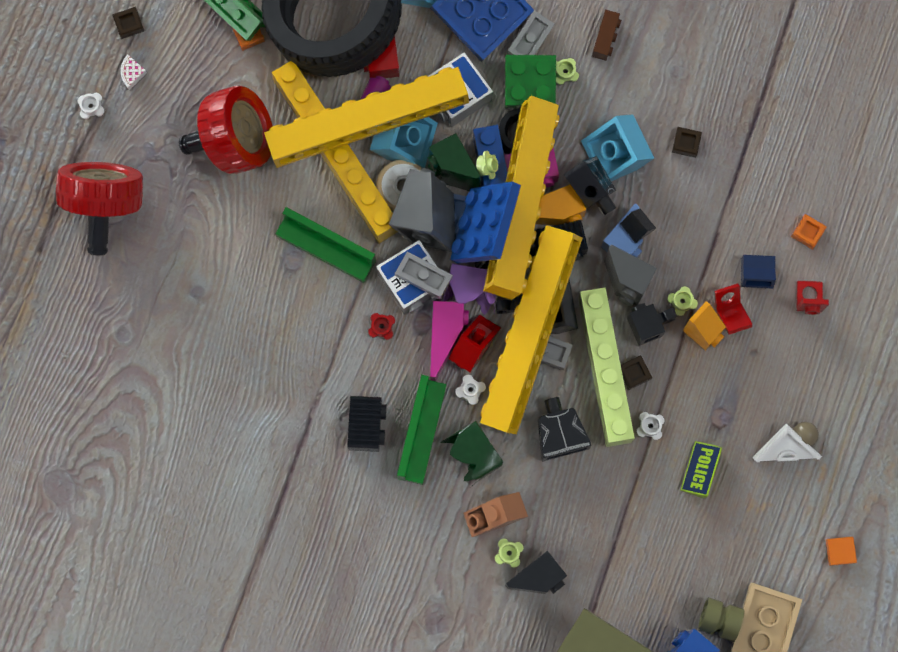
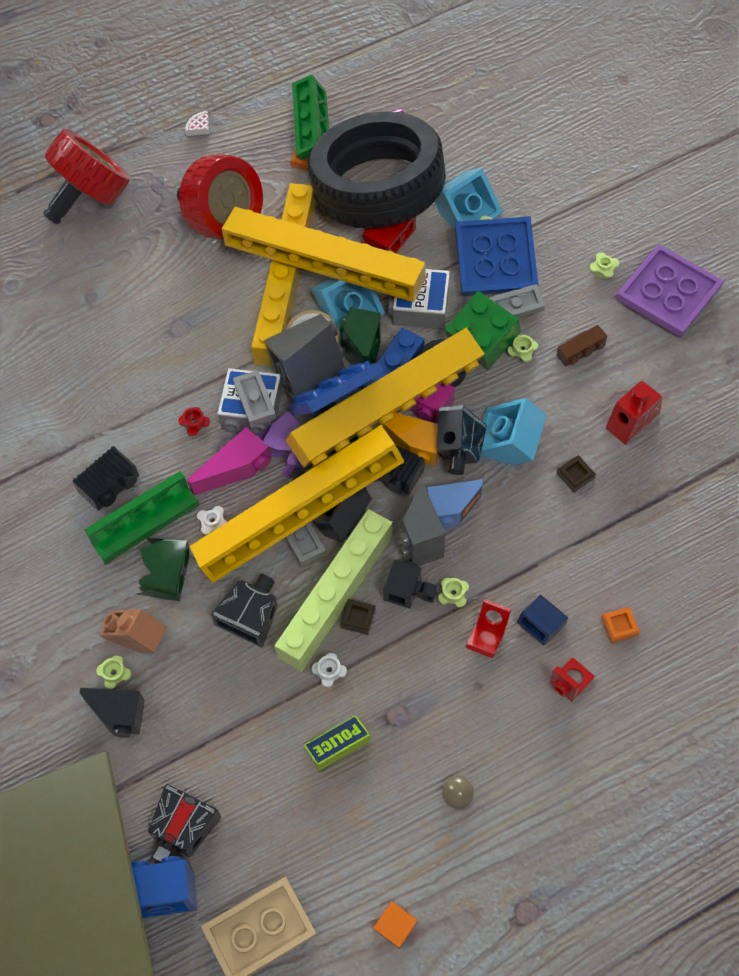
camera: 45 degrees right, 15 degrees down
(87, 99) = (148, 124): white plate -> none
(128, 22) = (230, 94): dark brown tile -> none
(326, 245) = (211, 332): green fence -> none
(474, 343) = (247, 485): red slope -> none
(487, 165) = (383, 353): yellowish green plate -> none
(637, 225) = (466, 495): black slope -> none
(654, 610) = (180, 823): none -> black torso
(691, 59) = (641, 407): none -> red torso
(705, 327) = (449, 622): light orange slope -> none
(721, 619) = (224, 880): olive wheel -> none
(784, 447) = (430, 787): white tile -> none

